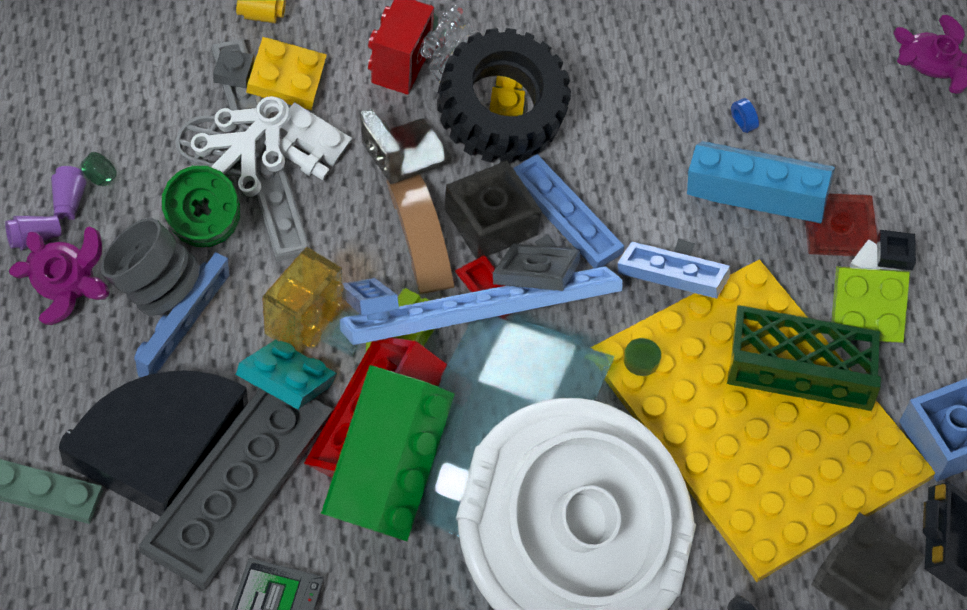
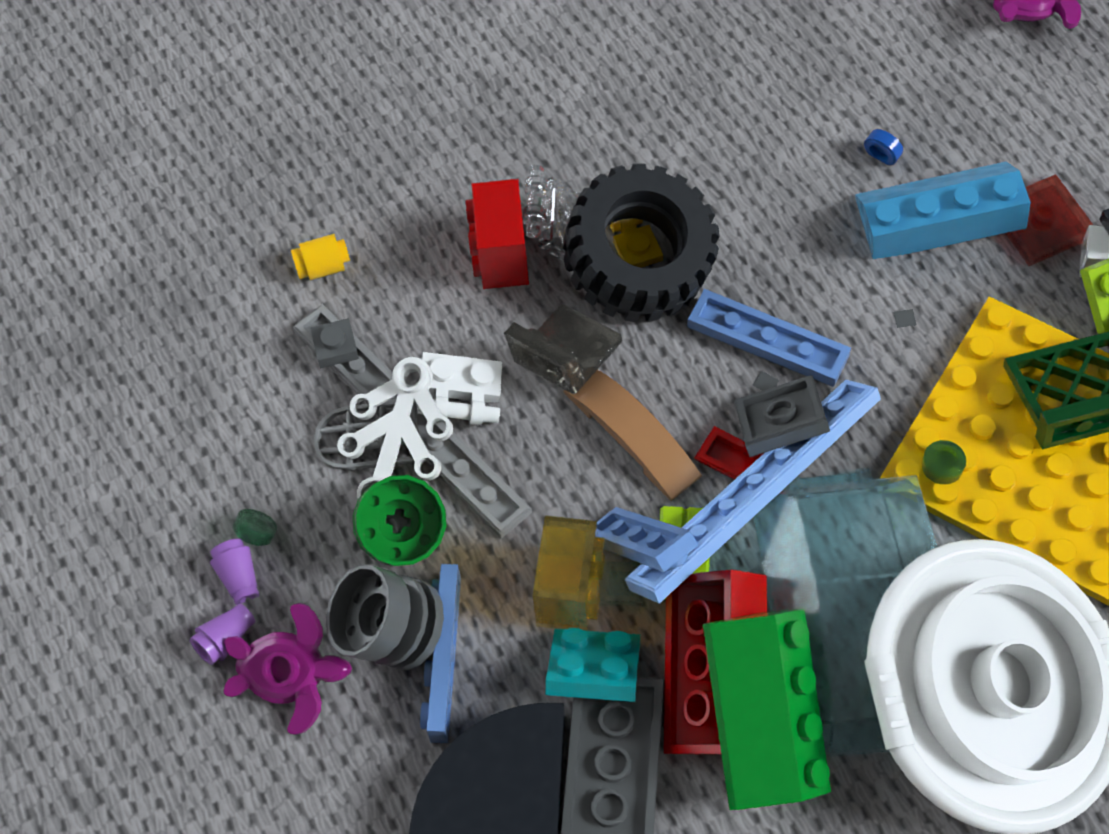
camera: 15 degrees left, 5 degrees up
(286, 72) = (392, 322): yellow plate -> none
(492, 209) = (697, 373): clear smoke brick -> none
(674, 269) = (917, 350): medium blue plate -> none

